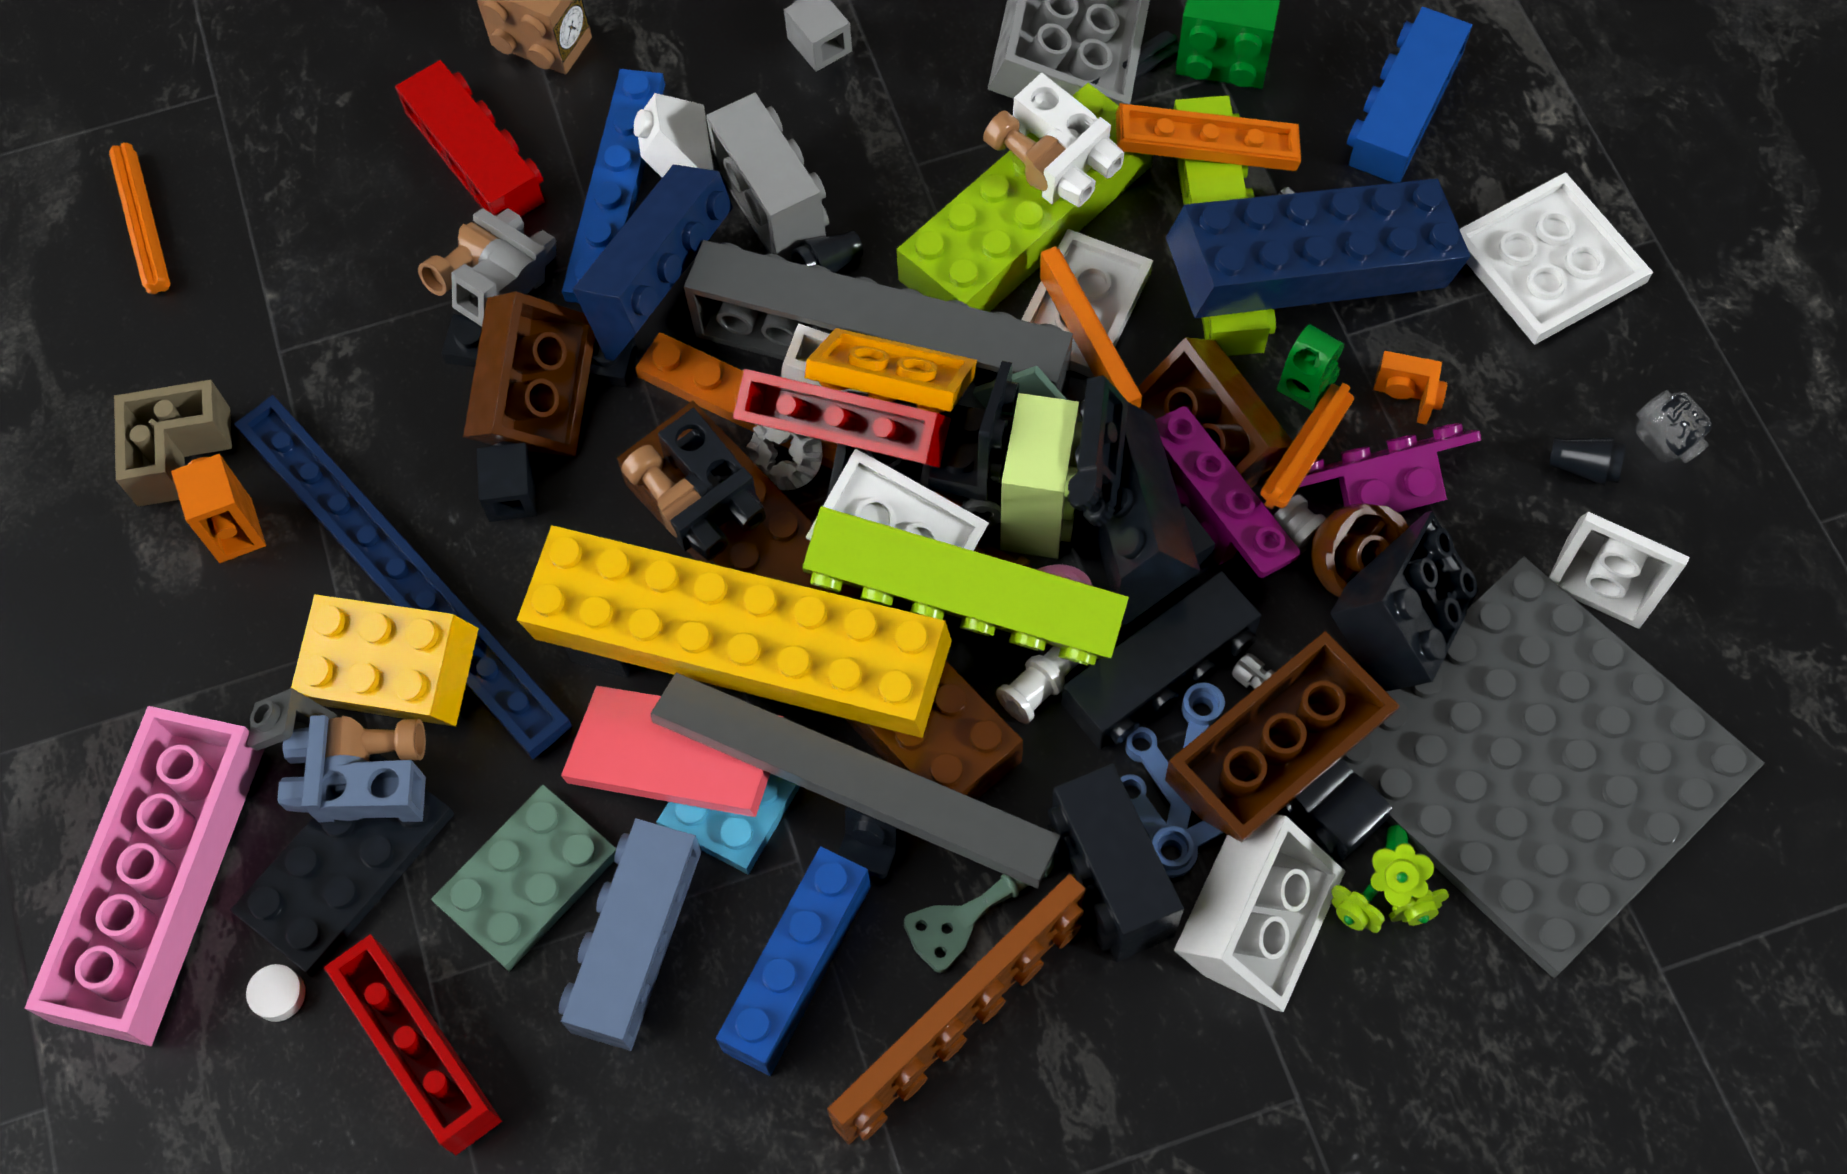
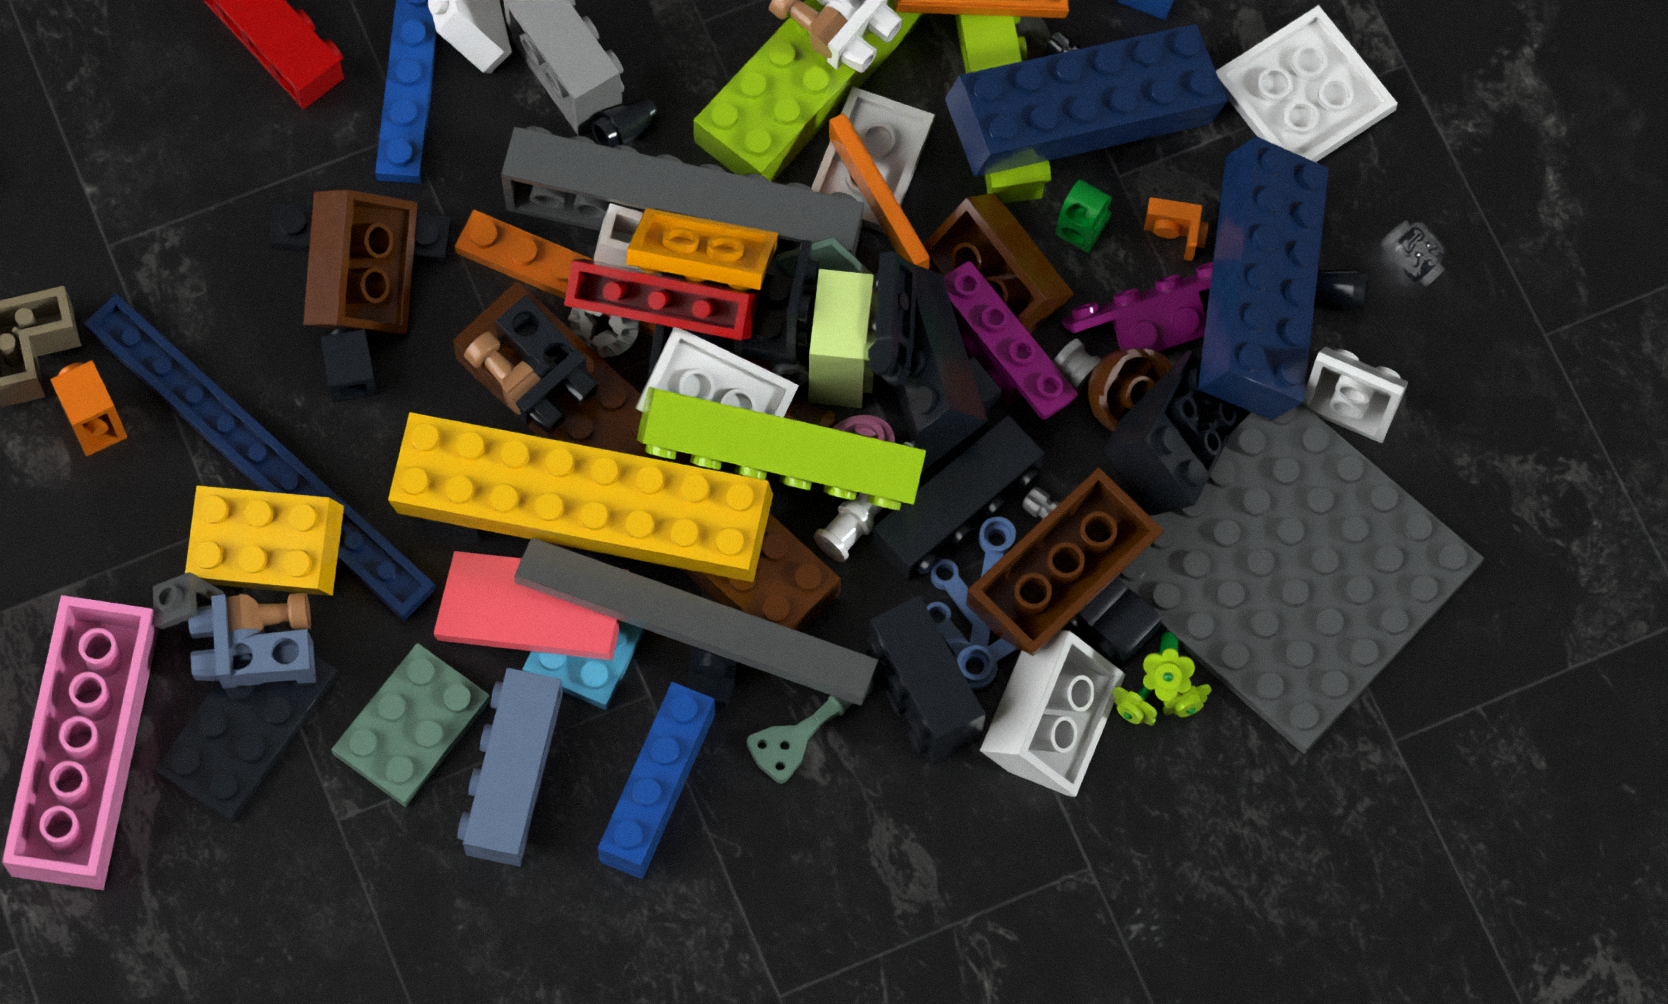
camera: 10 degrees left, 5 degrees up
(275, 992) = (205, 838): white tile -> none
(412, 1045) = (336, 871): red brick -> none
(500, 262) = (318, 147): light grey hips -> none
(650, 254) = (467, 141): dark blue slope -> none
(971, 998) = (809, 803): dark orange plate -> none
(1307, 446) = (1082, 292): orange axle -> none
(1512, 443) = (1264, 279): none -> dark blue brick

